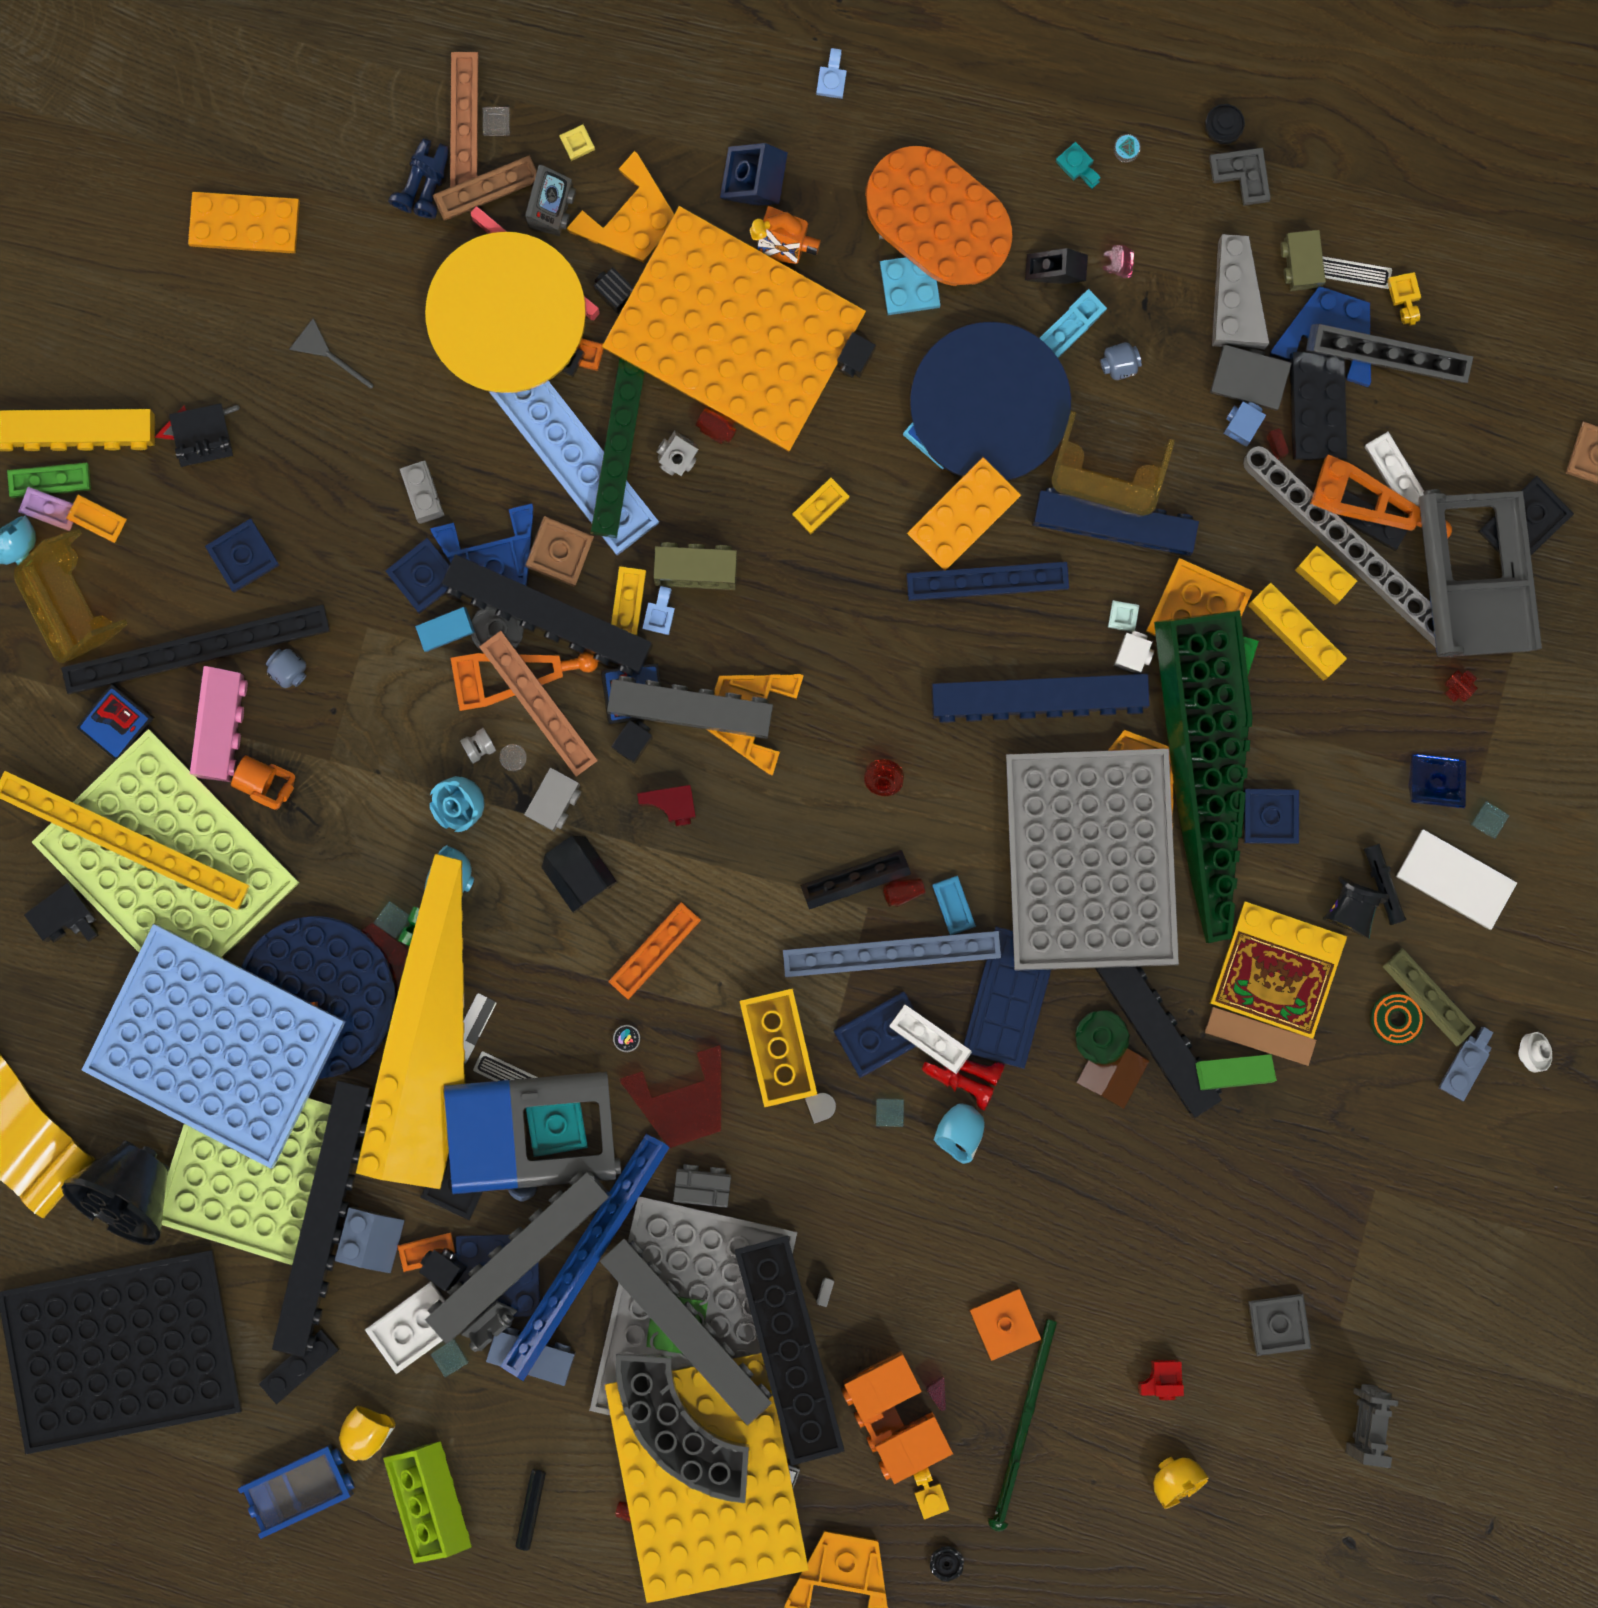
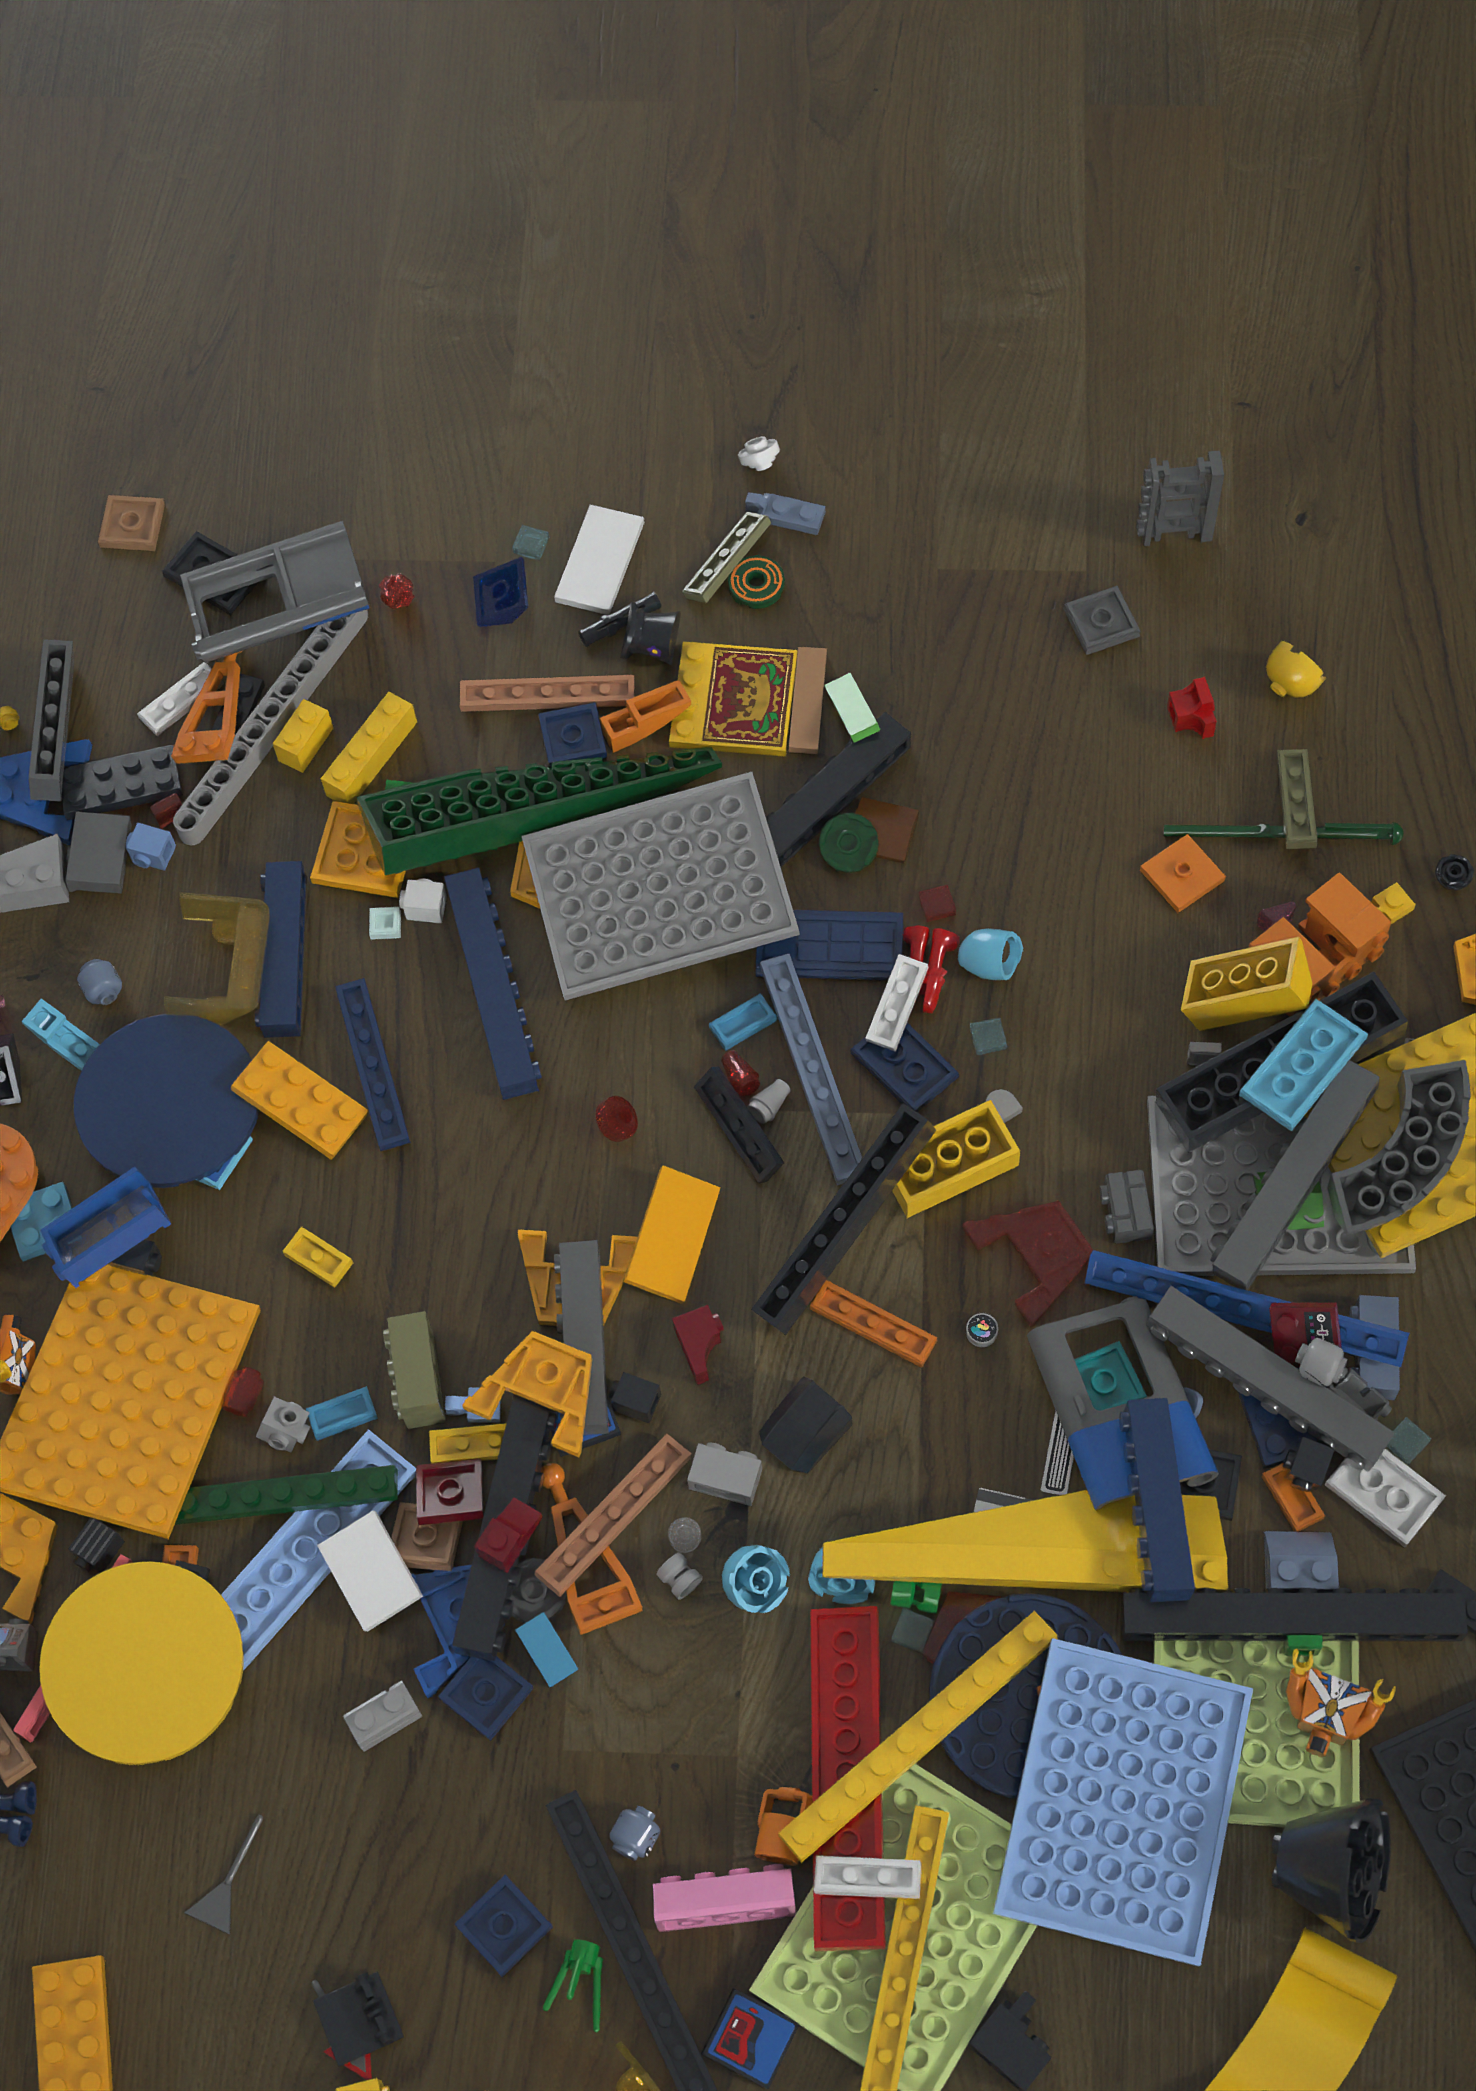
camera: 95 degrees left, 20 degrees down
(200, 834) = (867, 1877): none -> white tile
(202, 609) = (581, 1960): none -> green plant
(244, 1226) = (1331, 1706): none -> torso
(286, 839) = (843, 1734): none -> red plate
(297, 1219) = (1304, 1644): none -> green tile
(299, 901) = (917, 1736): none -> yellow plate
(432, 1134) = (1158, 1500): none -> dark blue brick
(514, 1300) = (1321, 1362): none -> light grey head
(530, 614) = (508, 1534): none -> dark red arch
(537, 502) = (370, 1571): none -> white tile
(545, 1297) = (1300, 1324): none -> dark red plate
(590, 577) = (449, 1491): none -> plate
(655, 670) = (547, 1375): none -> light orange wing
(681, 503) = (341, 1413): none -> dark azure tile
(736, 945) = (844, 1219): none -> black brick
(769, 802) = (672, 1234): none -> light orange tile
(773, 1364) = (1303, 1064): none -> medium azure tile
(868, 1342) = (1247, 984): none -> yellow slope
(871, 909) = (768, 1101): none -> light grey cone
(879, 333) = (103, 1227): none -> blue door
(1027, 1101) = (937, 903): none -> clear red tile
(1051, 1446) = (1296, 799): none -> olive tile
(1274, 885) = (644, 715): none -> orange slope
(1321, 802) = (545, 692): none -> nougat plate

